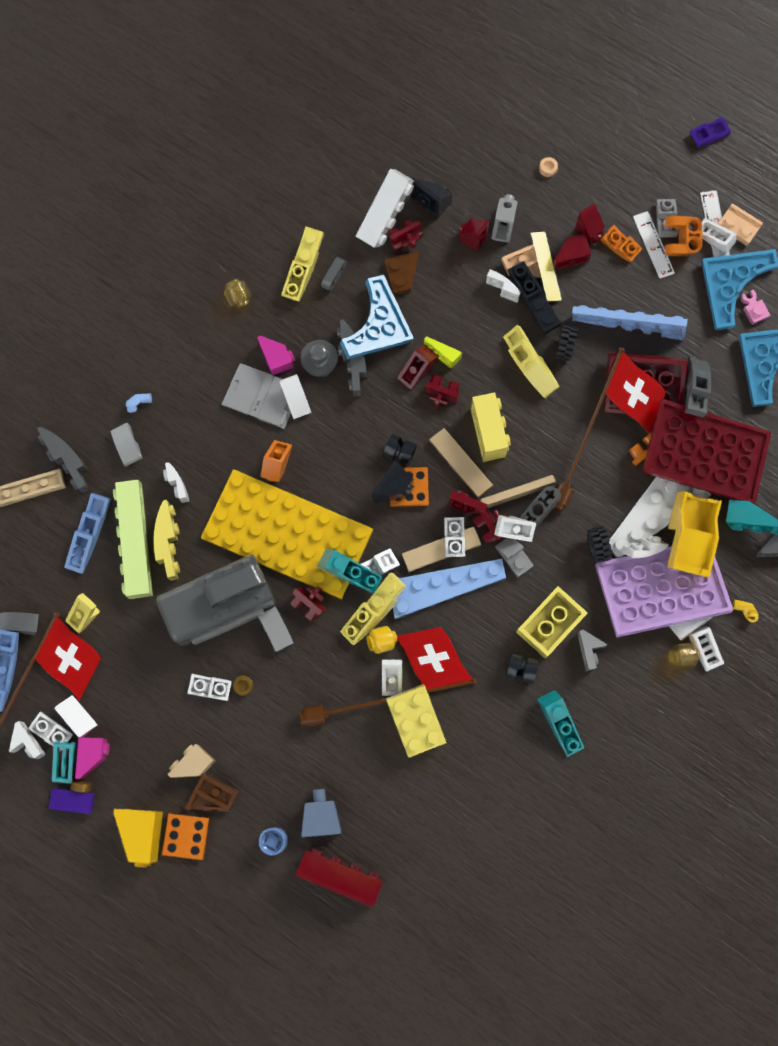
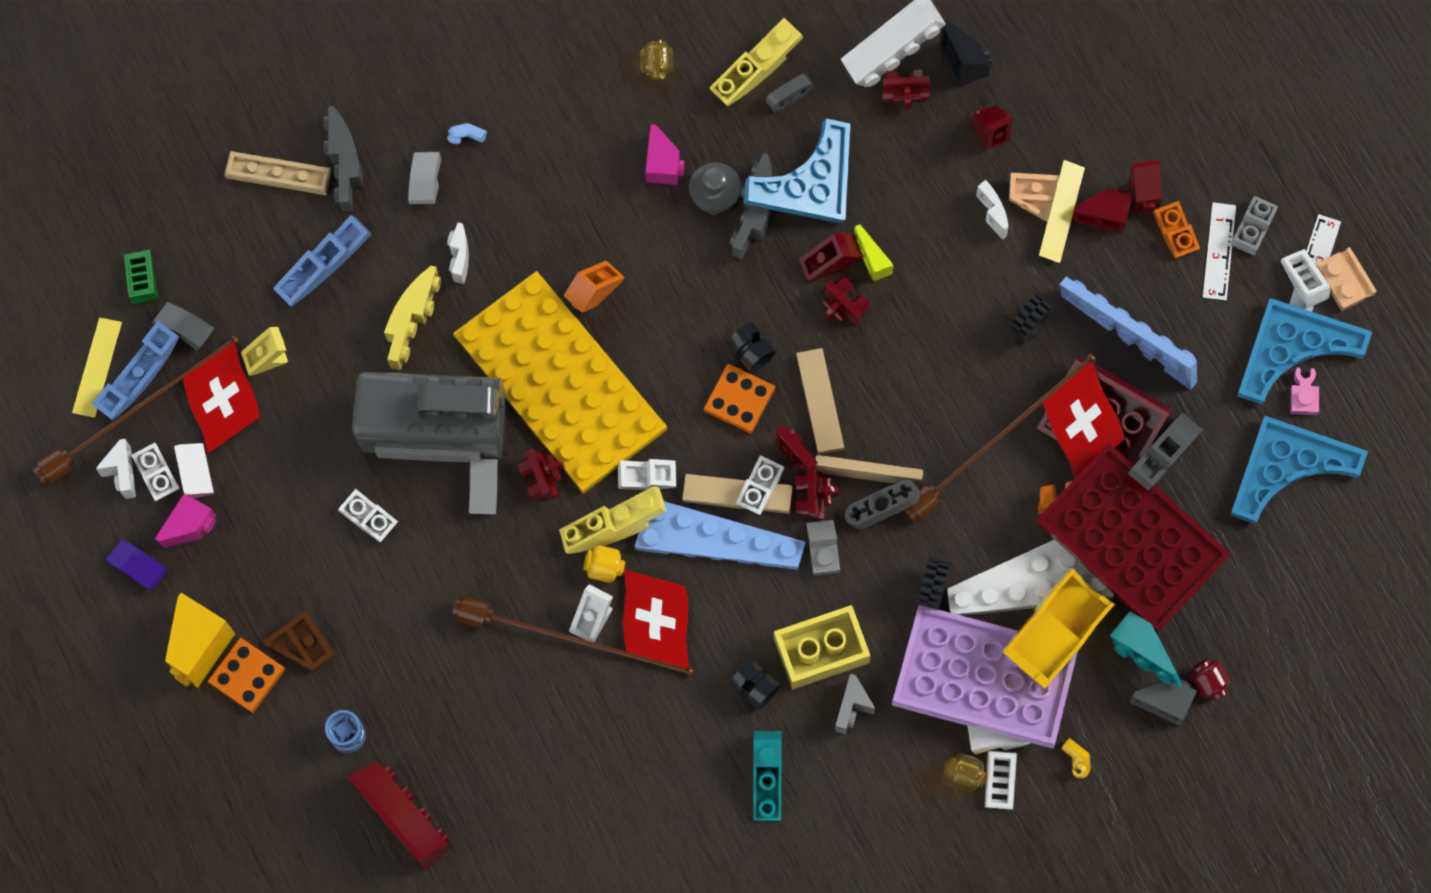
camera: 30 degrees right, 5 degrees down
(55, 768) = (163, 495): teal tile -> none
(80, 786) = (156, 553): pearl gold tile -> none
(133, 539) = (372, 295): yellowish green brick -> none
(192, 764) = (299, 593): tan slope -> none
(243, 685) = (409, 534): pearl gold tile -> none
(258, 395) = (620, 200): light grey piece -> none
(295, 396) = (658, 219): white slope -> none
(320, 816) = (416, 733): sand blue torso -> none
(349, 570) = (608, 460): teal slope -> none
(393, 485) = (716, 383): black slope -> none
(401, 272) = (876, 131): reddish brown wing -> none
(416, 720) = (591, 678): light yellow brick -> none
(490, 427) = (877, 373): light yellow brick -> none
(505, 213) = (1046, 121): light grey torso -> none
(515, 528) = (839, 510): white slope -> none
(530, 363) = (971, 319): light yellow slope -> none
(533, 297) = (1023, 242): black slope -> none
(548, 167) = (1137, 89): light nougat tile -> none
(646, 547) = (994, 618): white slope -> none
(685, 235) = (1263, 258): orange piece -> none
(710, 132) = (1373, 145): dark purple slope -> none

